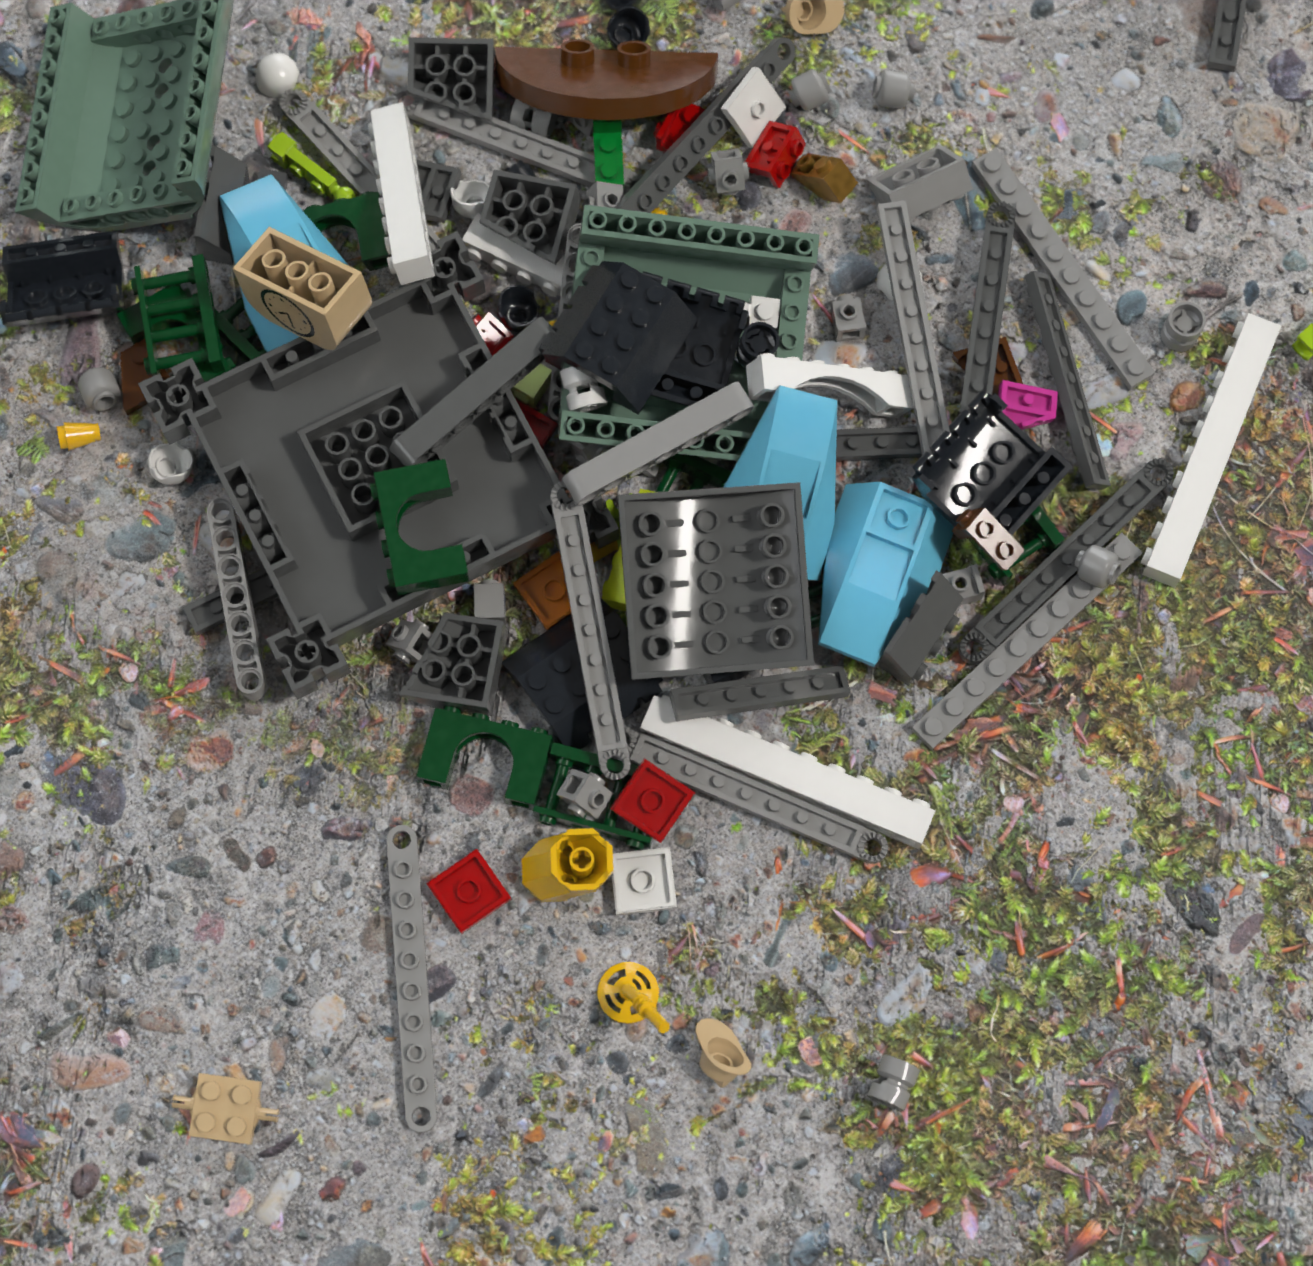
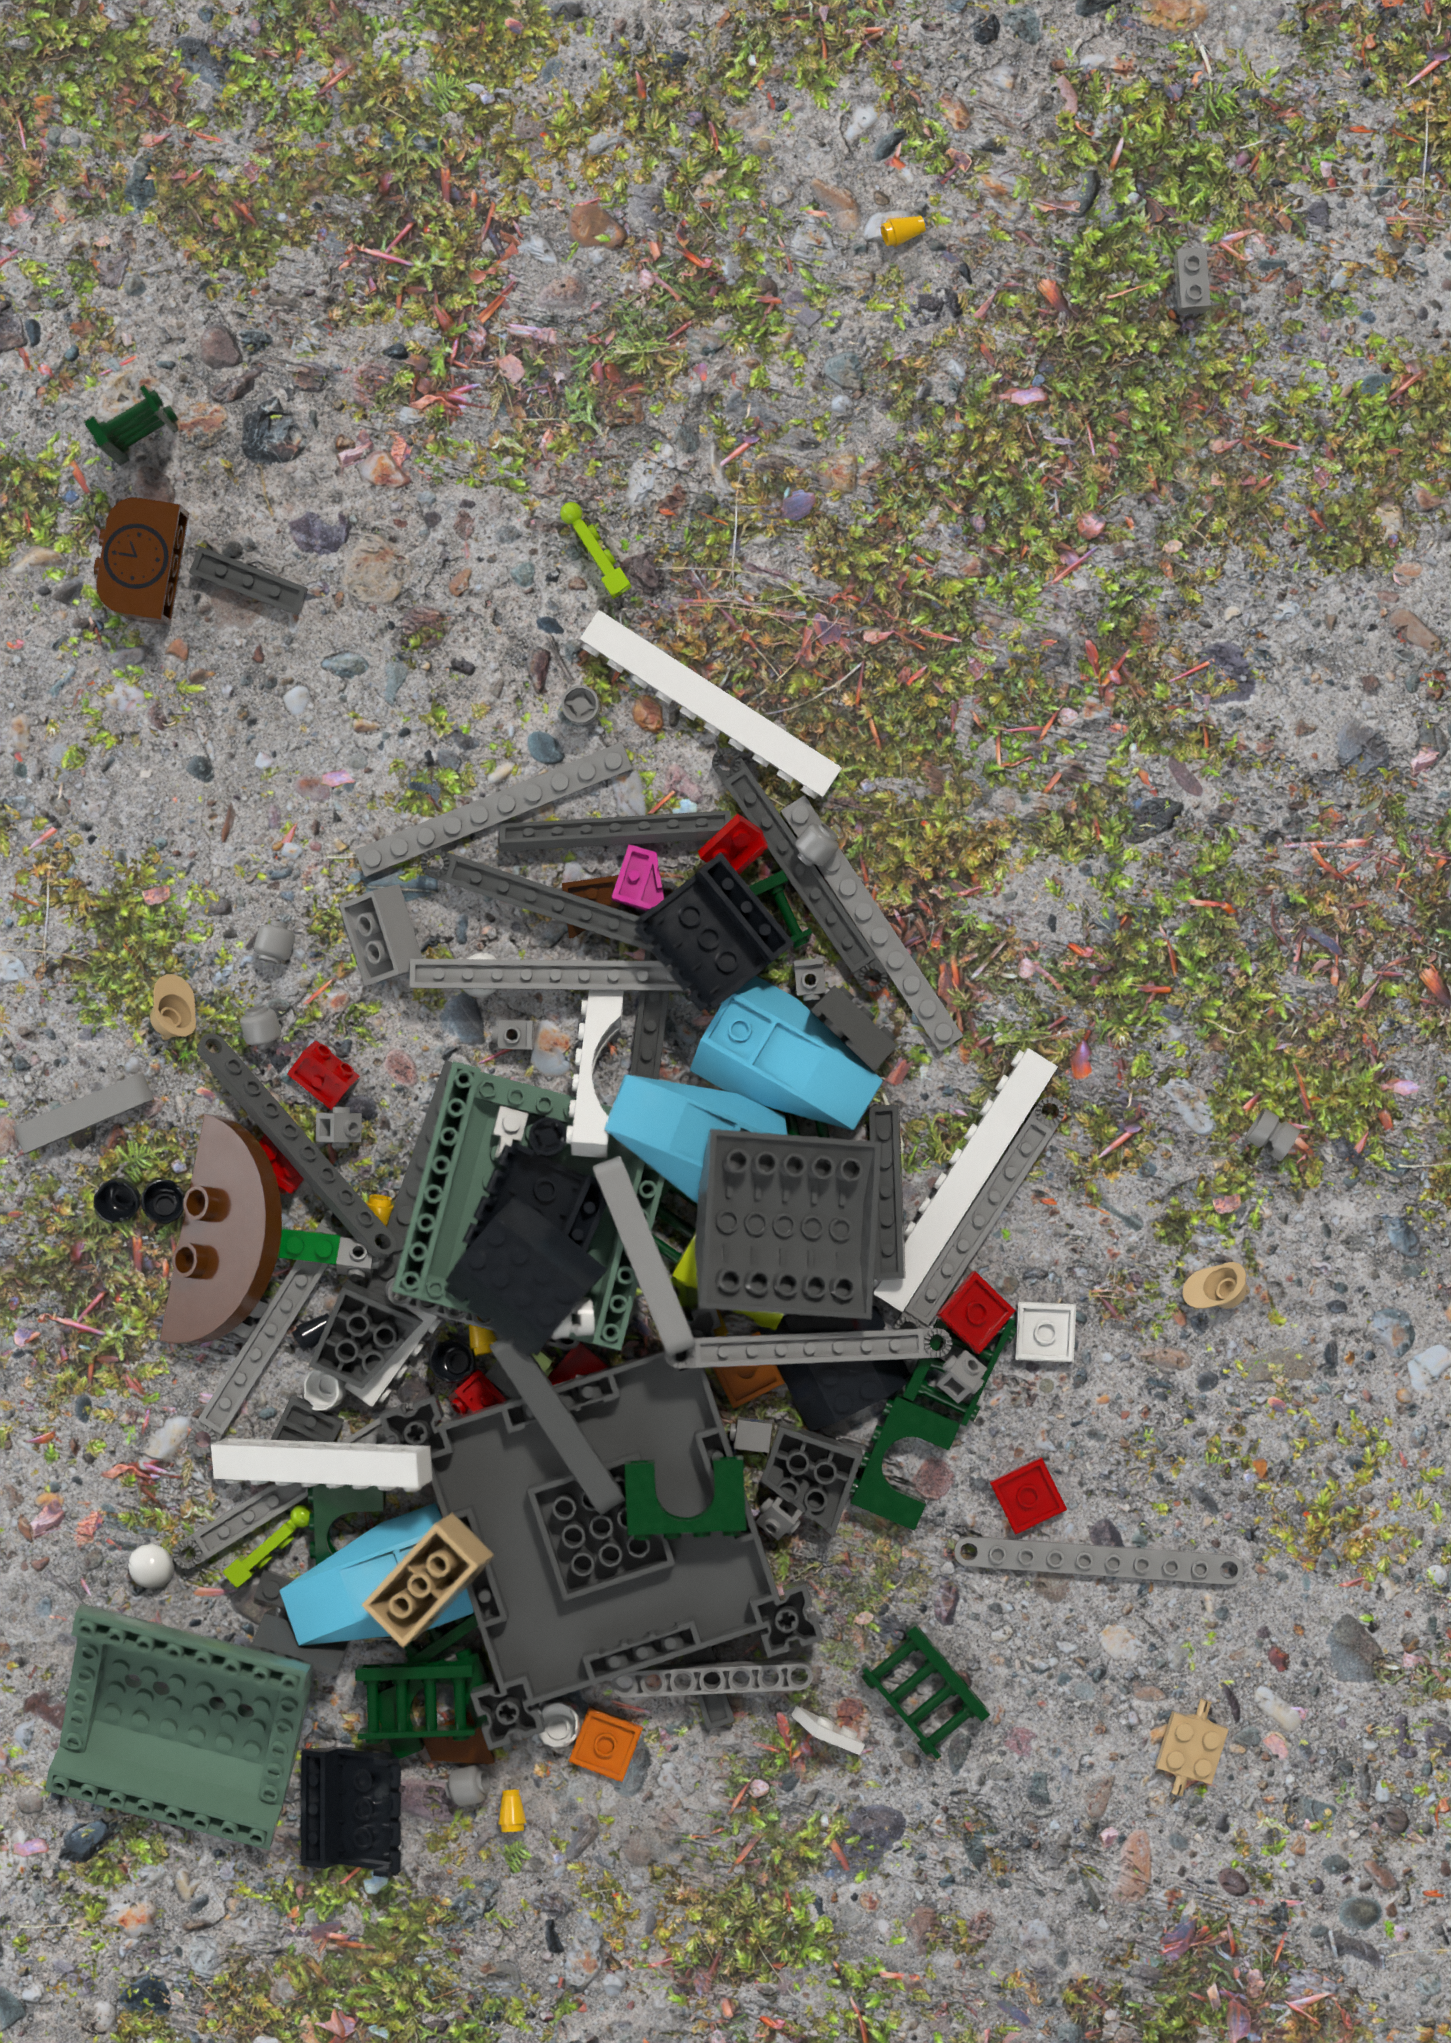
camera: 75 degrees left, 15 degrees up
(156, 515) = (605, 1744): none -> orange tile
(195, 726) = (827, 1730): none -> white wing
(260, 846) = (952, 1686): none -> dark green fence
(454, 73) = (189, 1388): dark grey wedge -> none
(567, 865) = (1025, 1402): yellow brick -> none
(643, 1000) = (1148, 1361): yellow dish -> none
(752, 106) = (273, 1090): white plate -> none
(825, 176) = (359, 1030): pearl gold slope -> none
(989, 535) = (779, 949): bracket -> none
(1081, 491) = (738, 842): none -> red bracket

